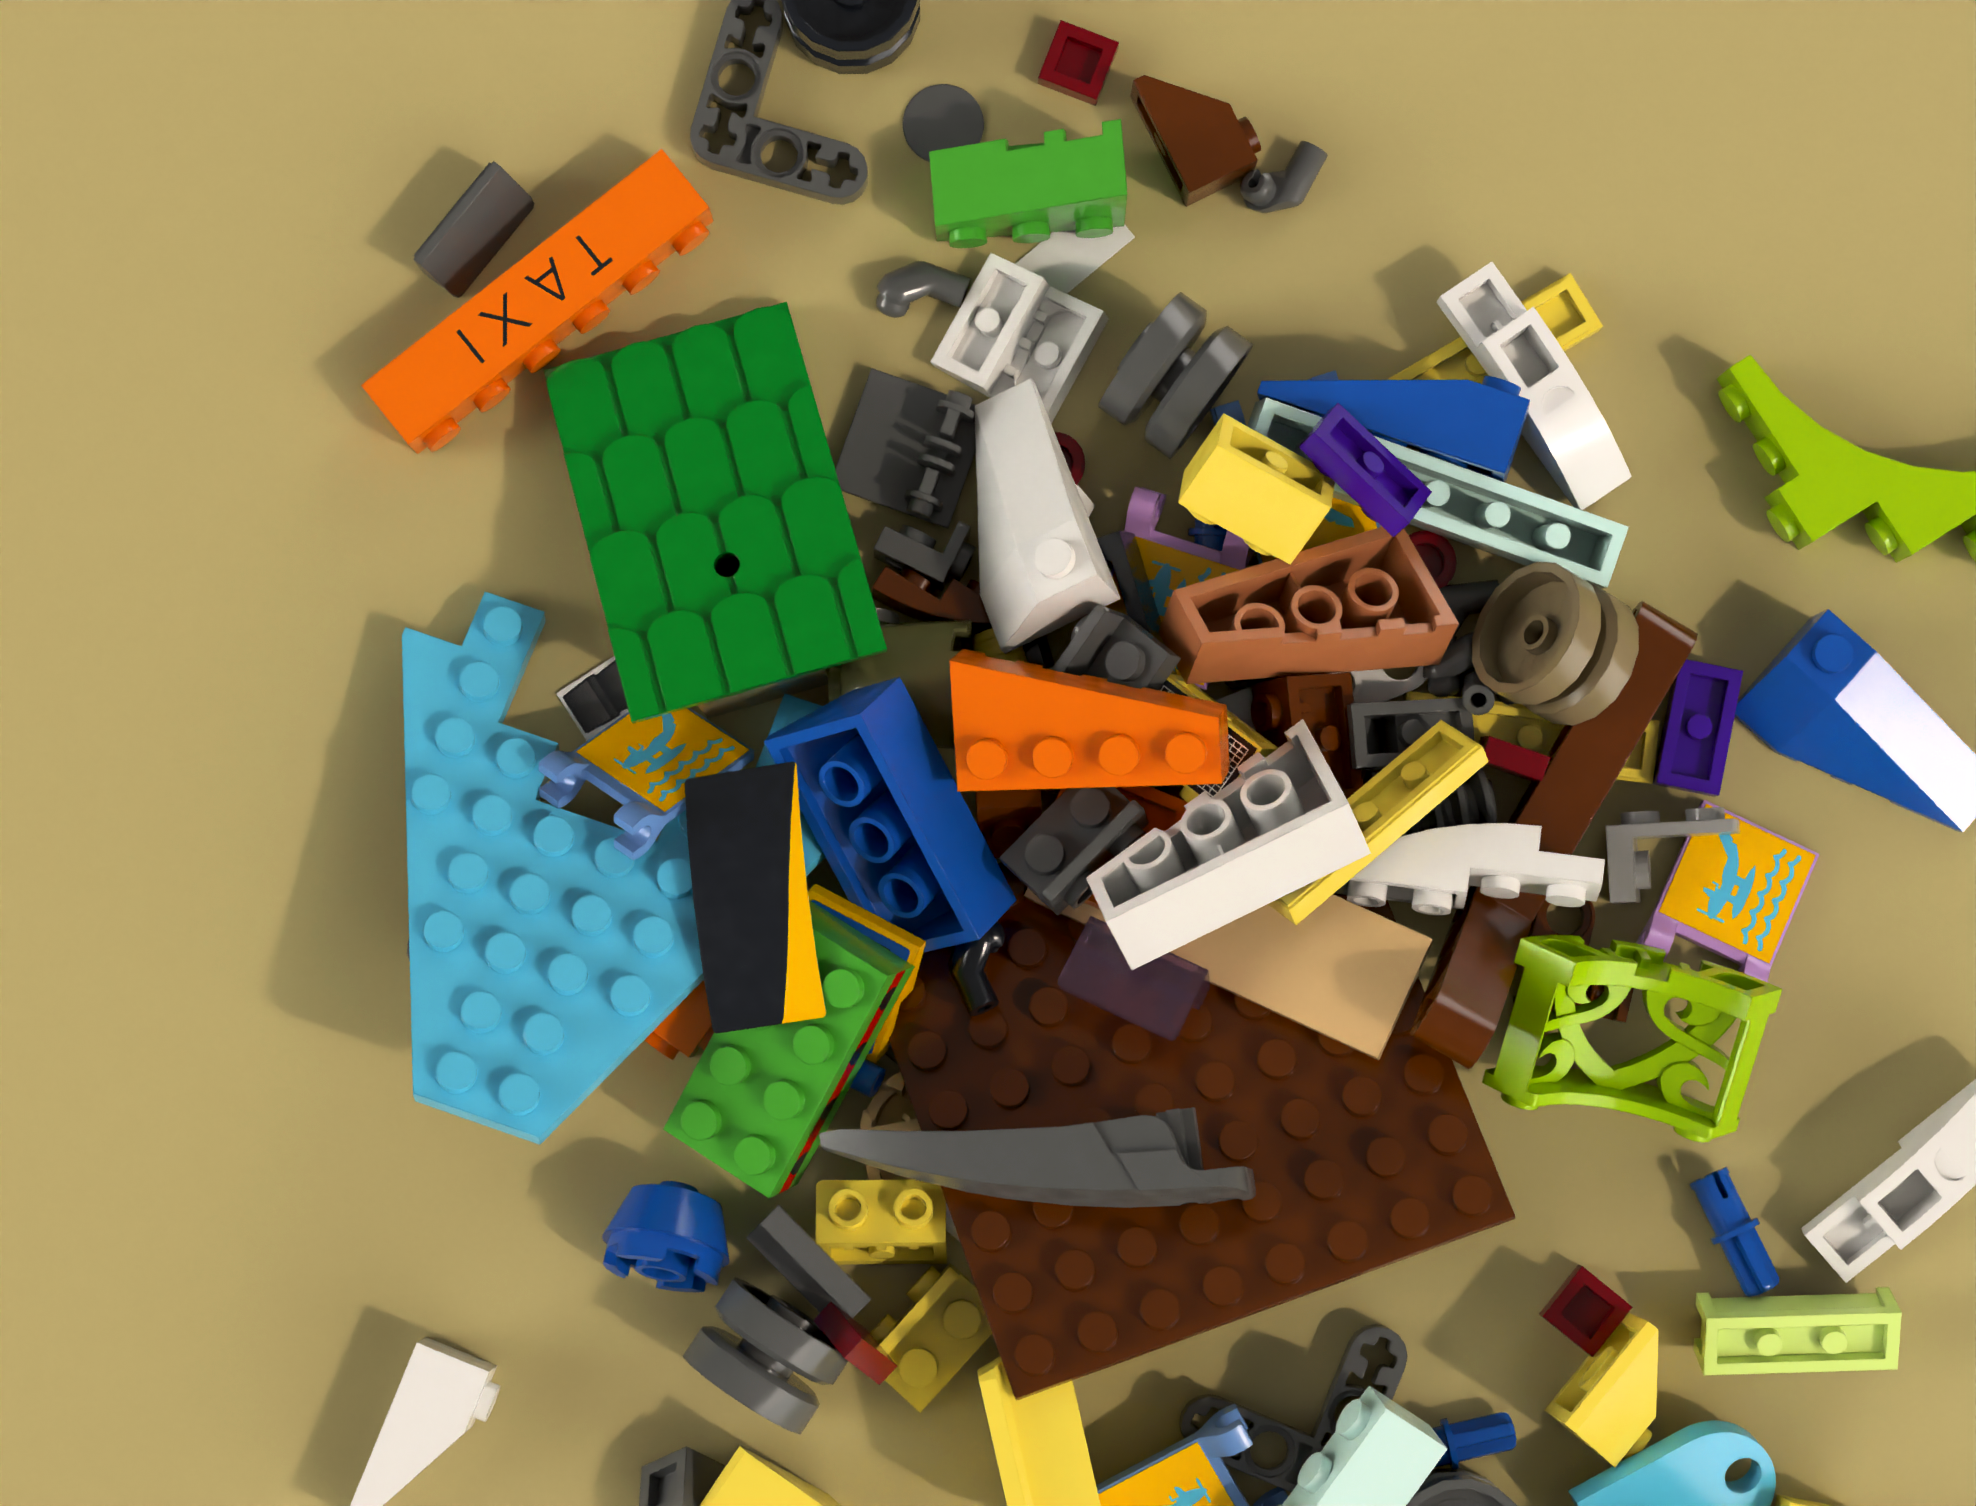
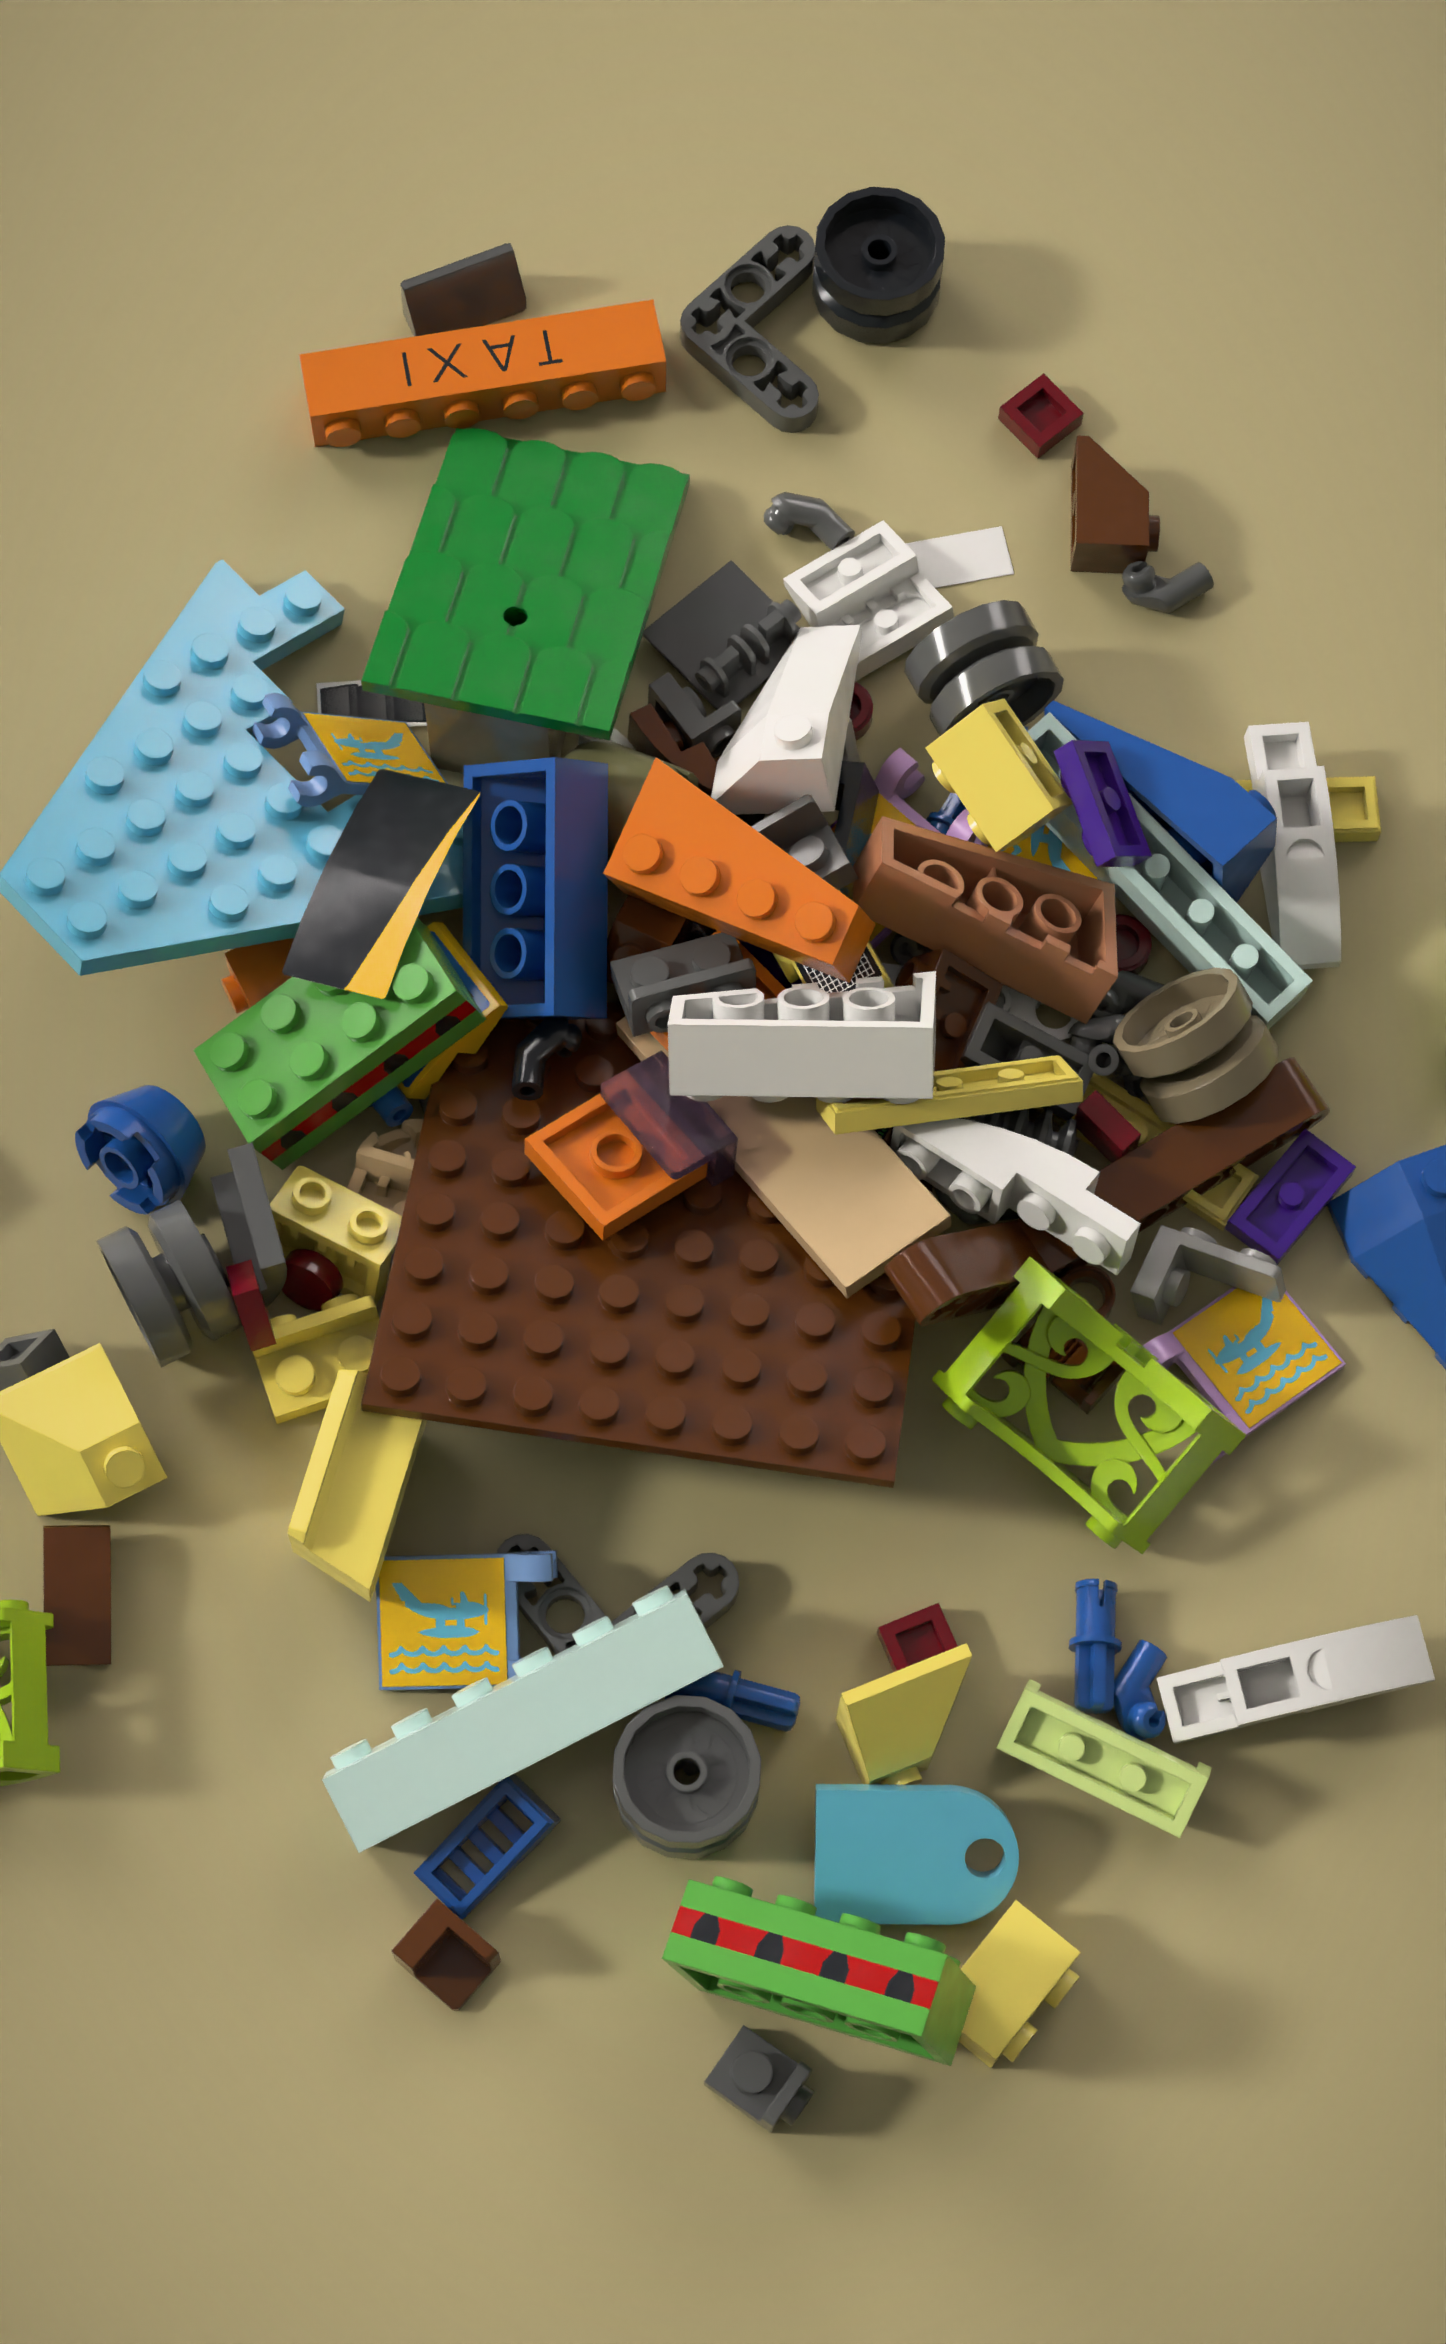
camera: 30 degrees right, 15 degrees down
(882, 1272) = (311, 1279): none -> dark red tile
(942, 119) = (900, 410): dark grey sticker -> none
(1030, 188) = (946, 479): bright green wedge -> none
(1086, 1164) = (527, 1221): dark grey piece -> none
(1093, 1055) = (603, 1167): none -> orange plate
(1790, 1258) = (1132, 1692): none -> blue arm

